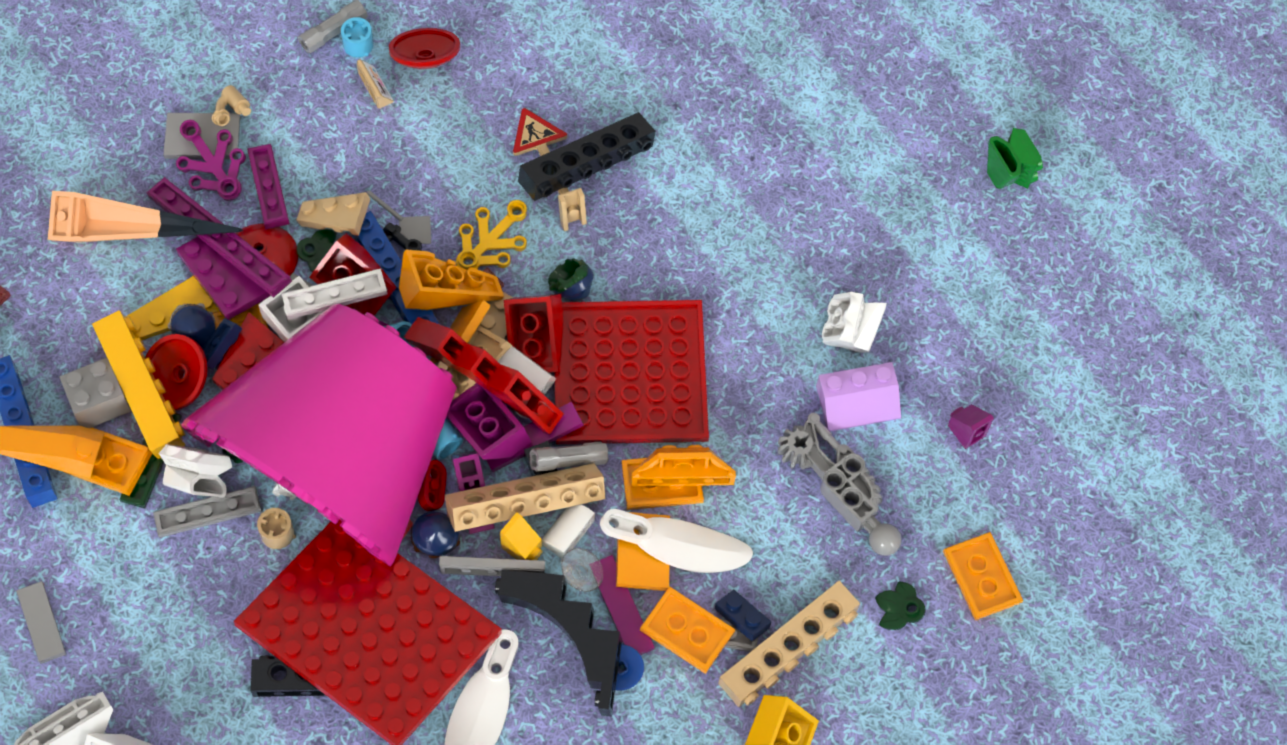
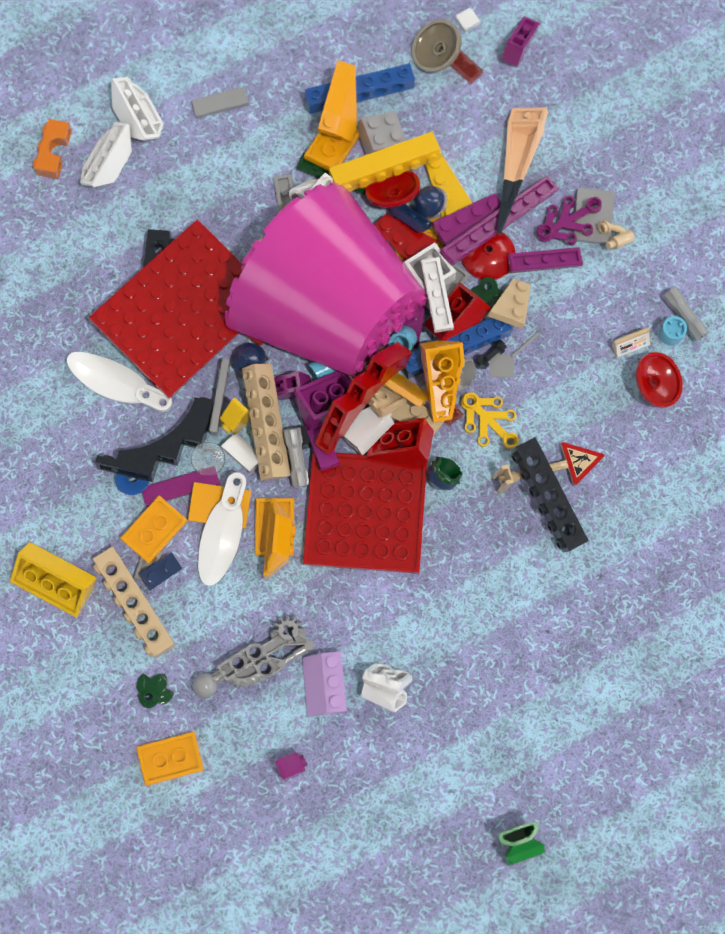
camera: 100 degrees right, 10 degrees up
(433, 488) = (288, 361): red plate -> none

